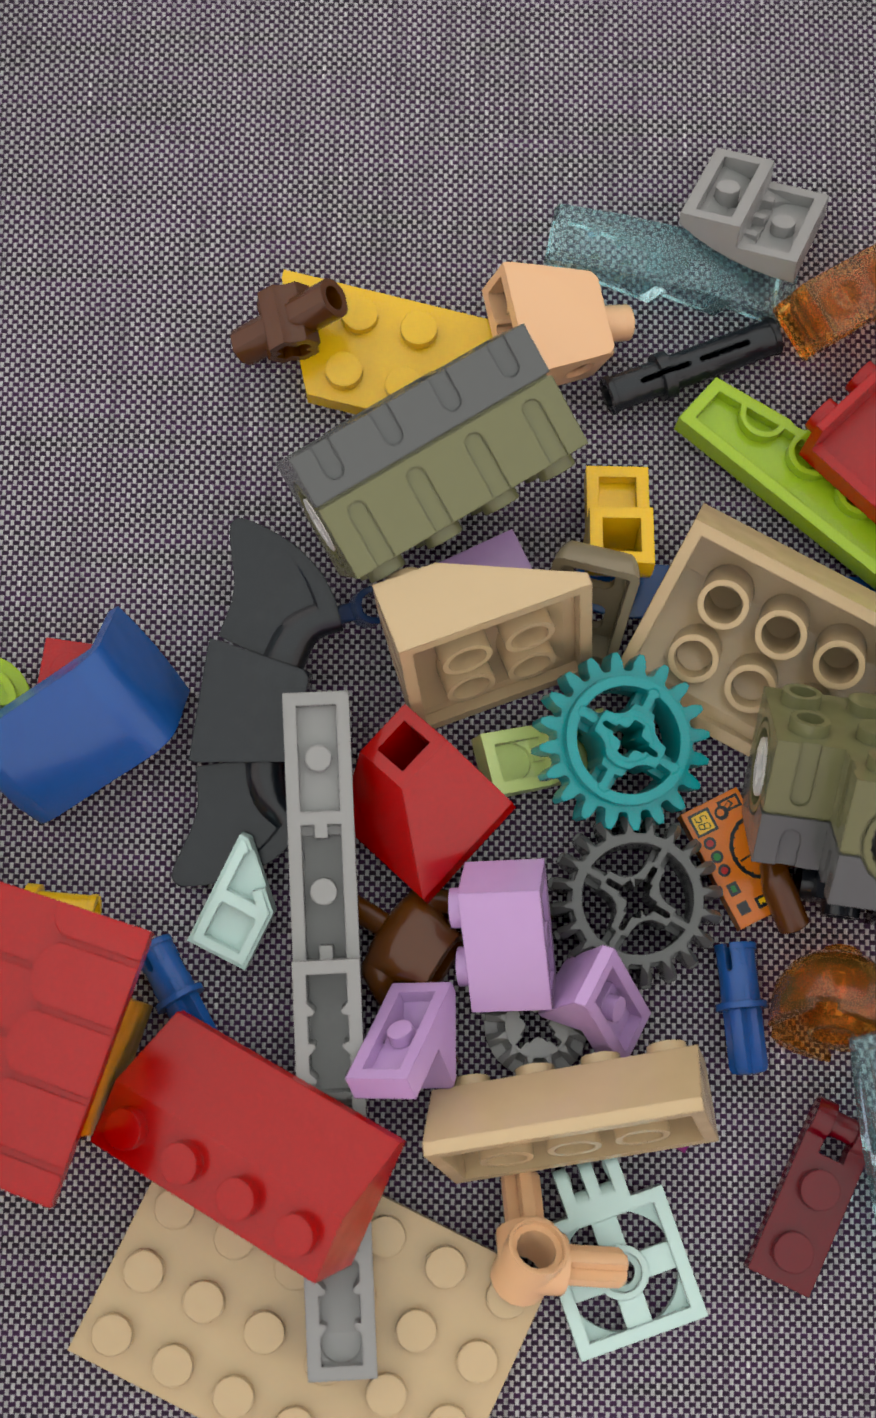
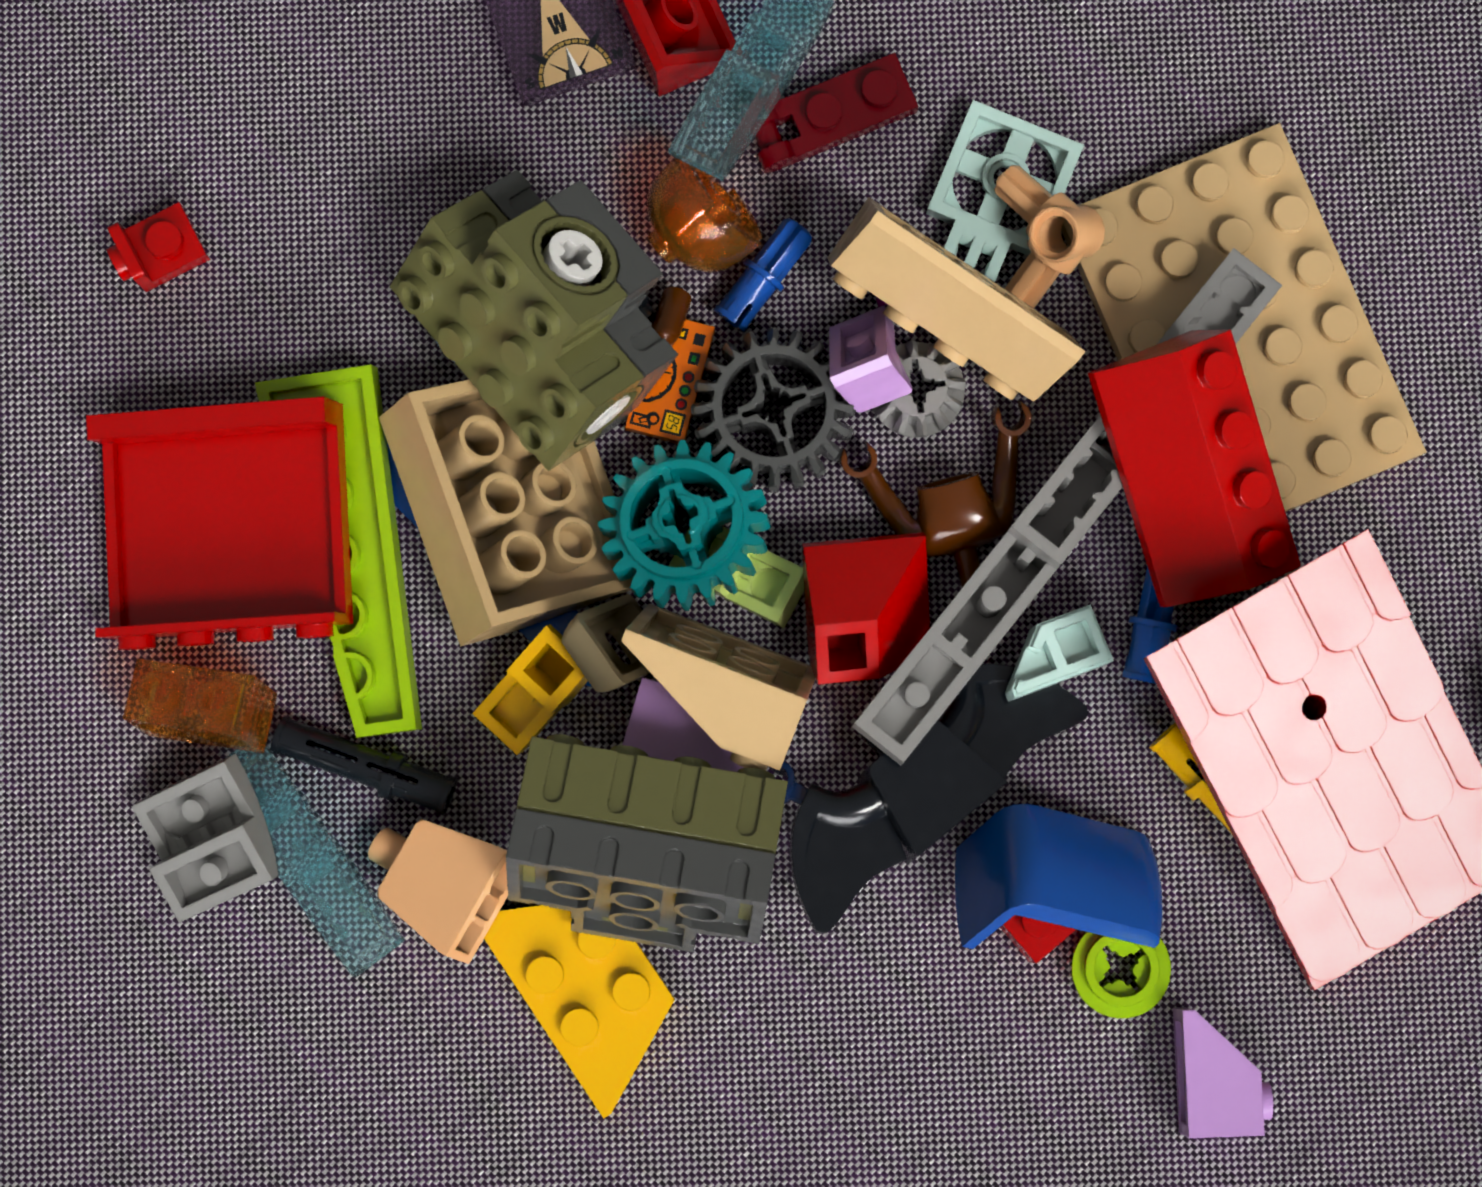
camera: 135 degrees left, 5 degrees up
(289, 322) = (643, 1062): reddish brown axle -> none
(408, 1044) = (1025, 443): lavender slope -> none
(504, 935) = (893, 457): lavender brick -> none

